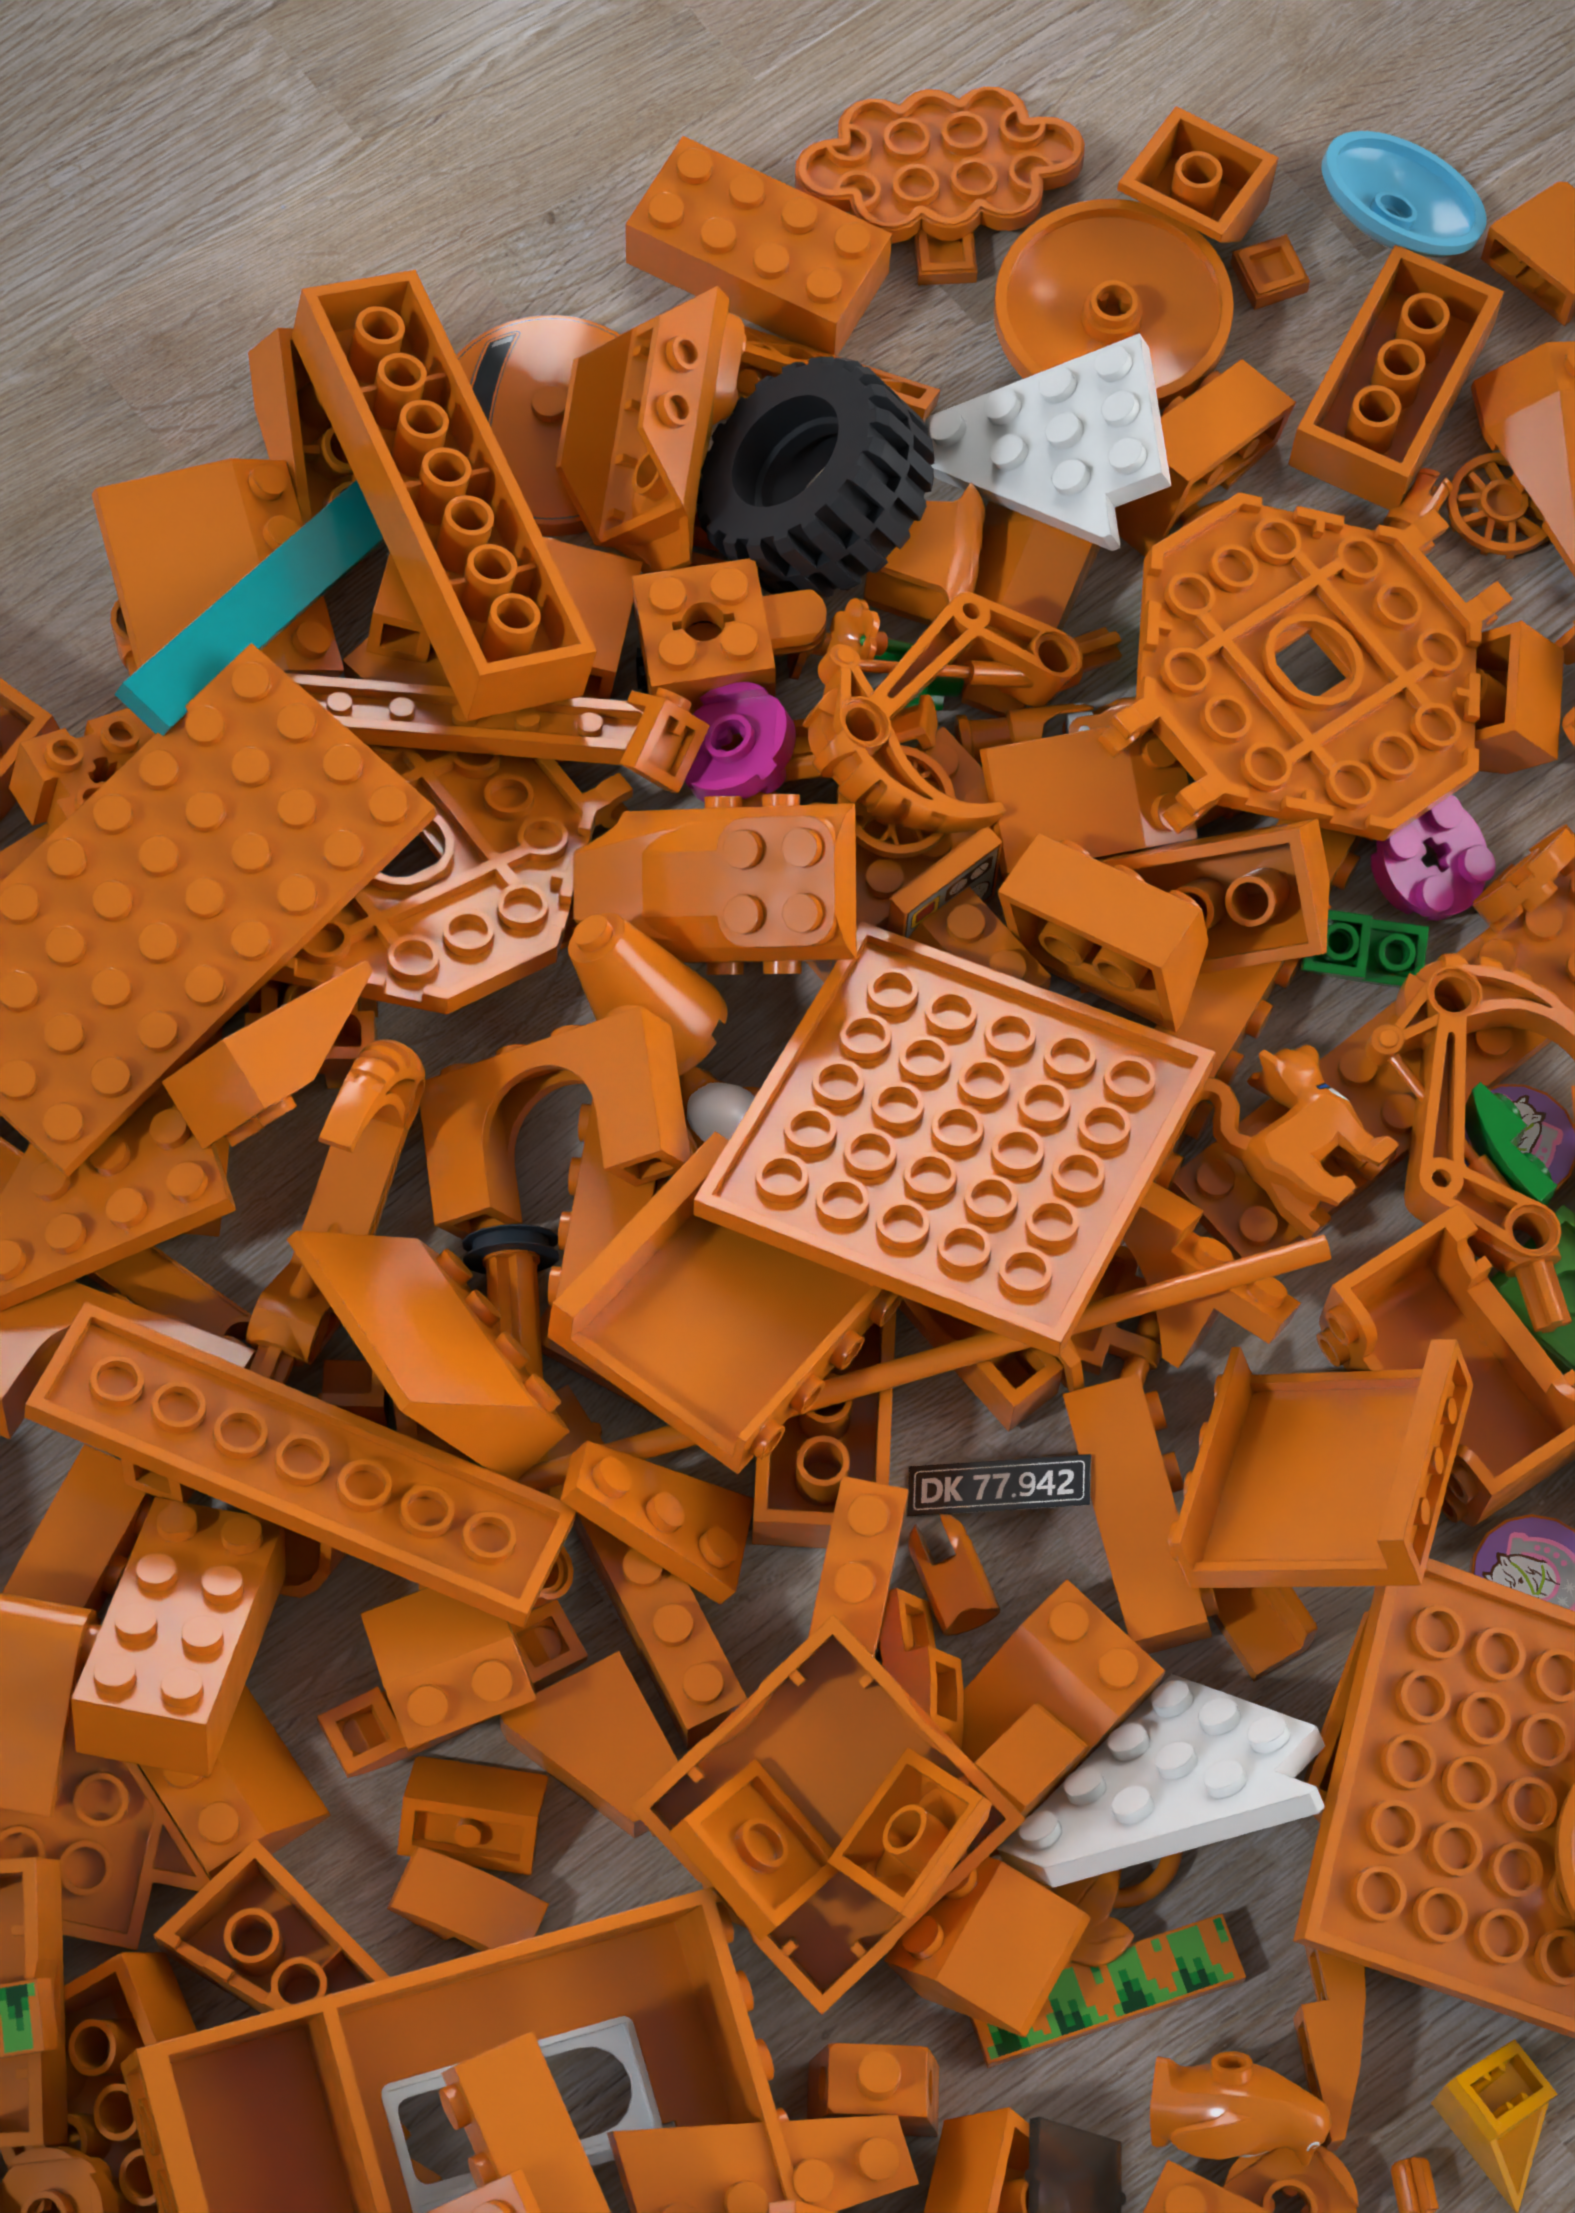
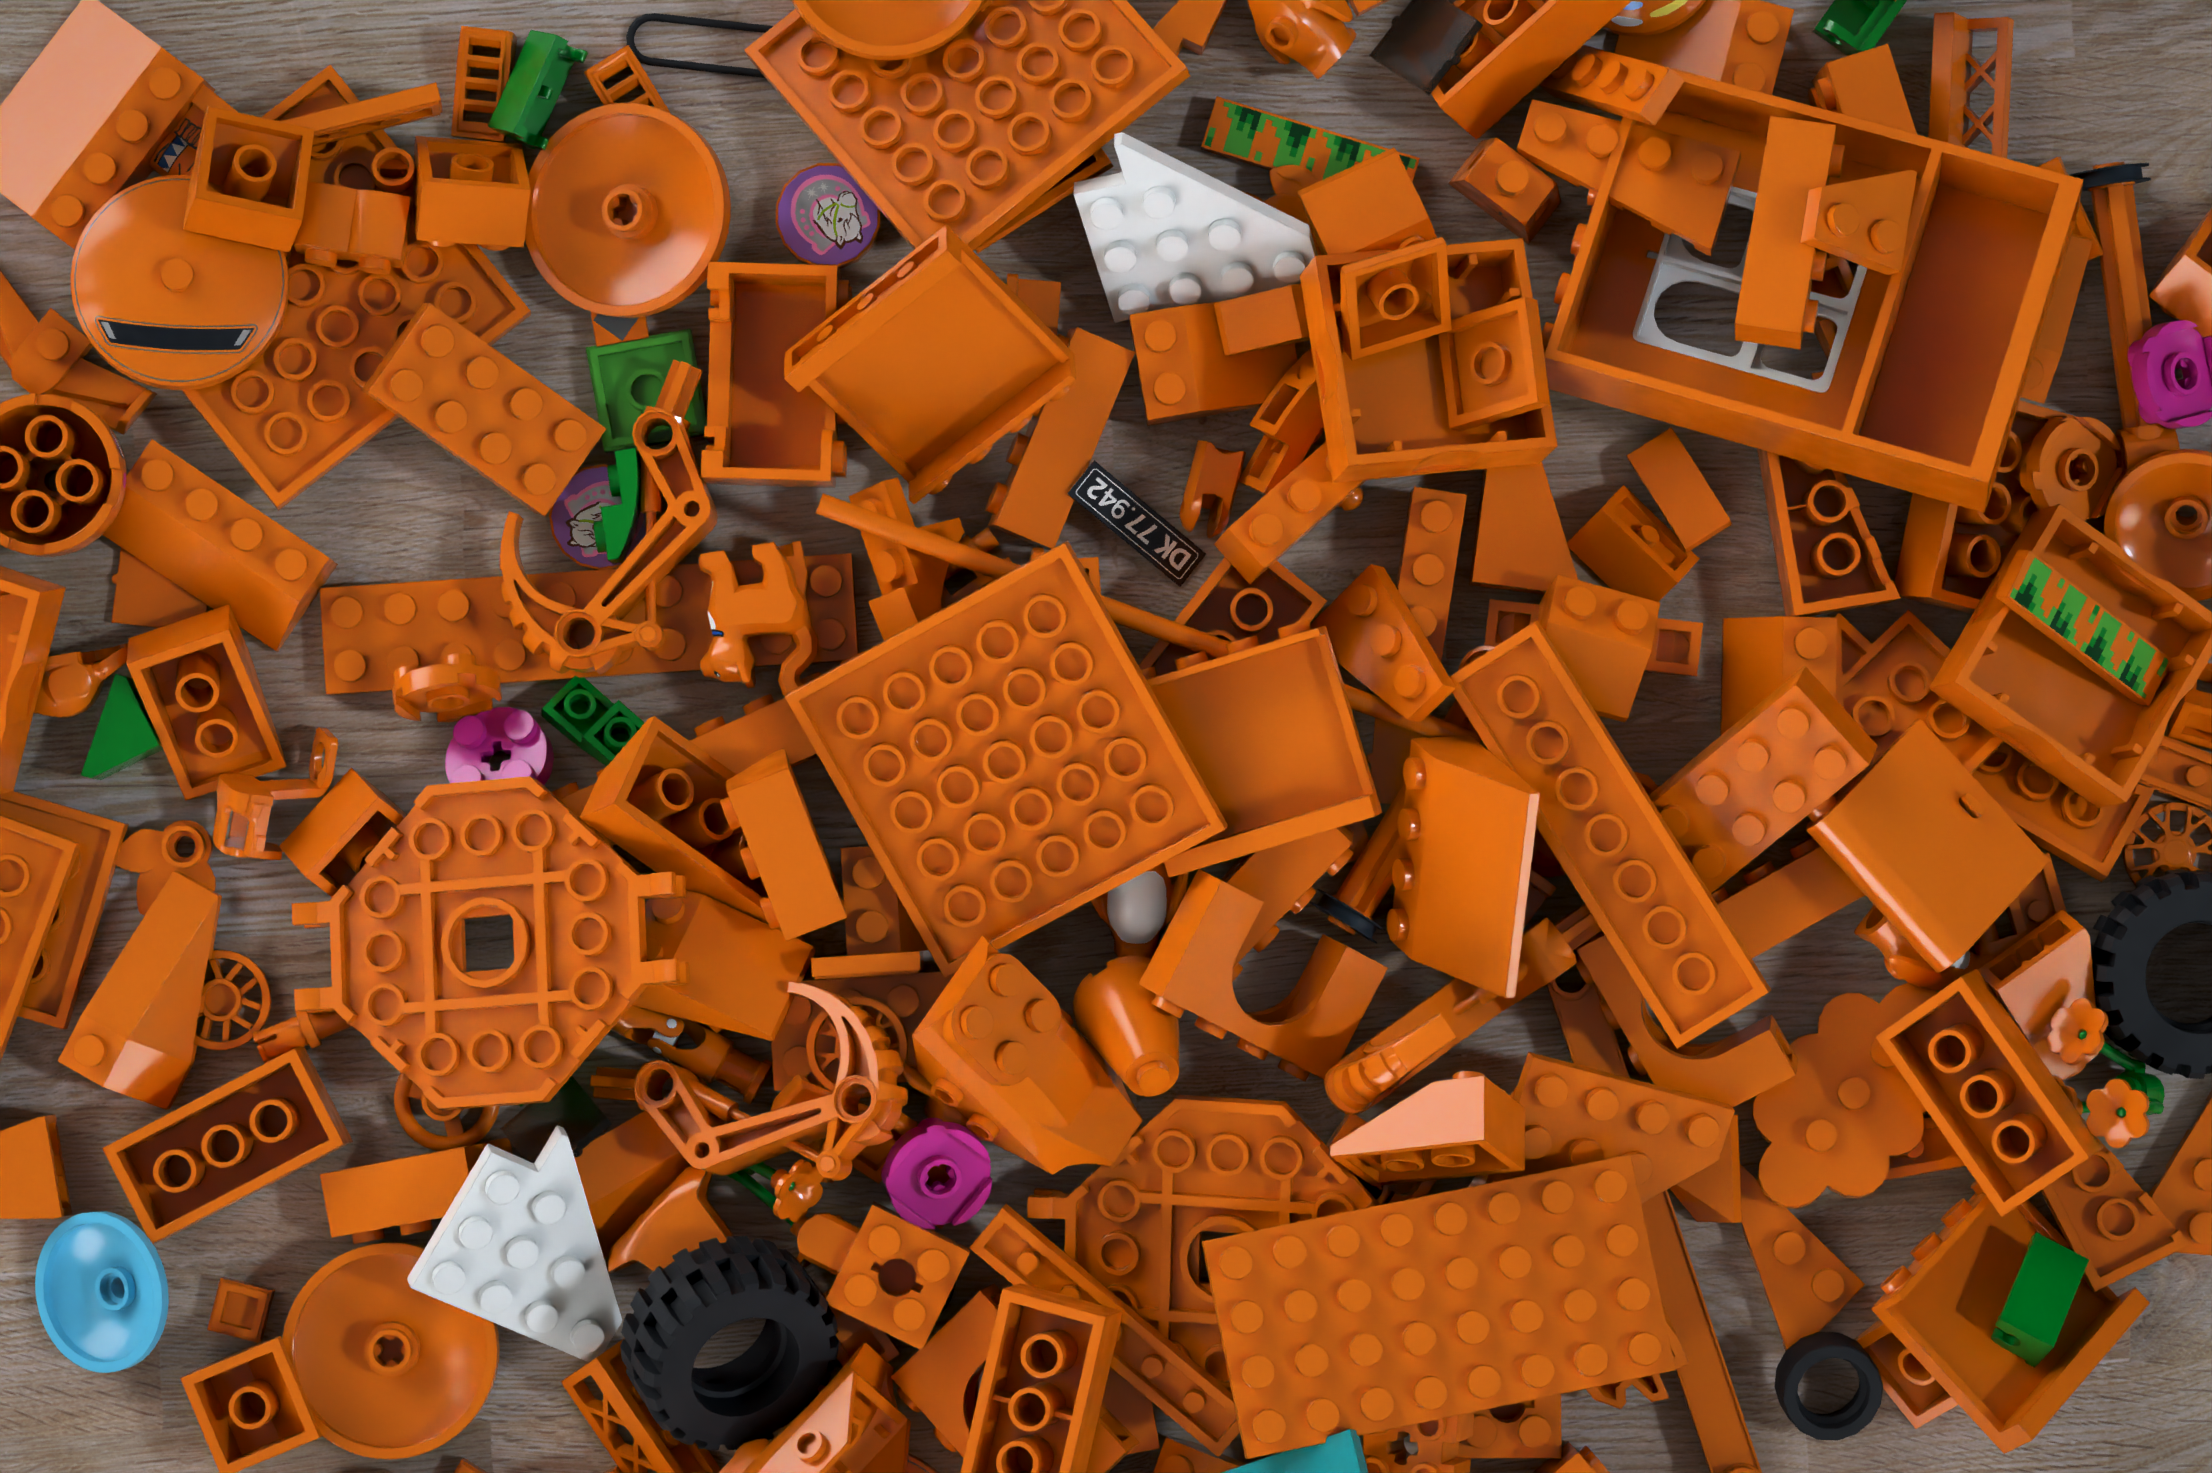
camera: 140 degrees left, 20 degrees up
(664, 739) = (988, 1204): orange bracket -> none
(1111, 584) = (568, 1109): none -> clear smoke piece

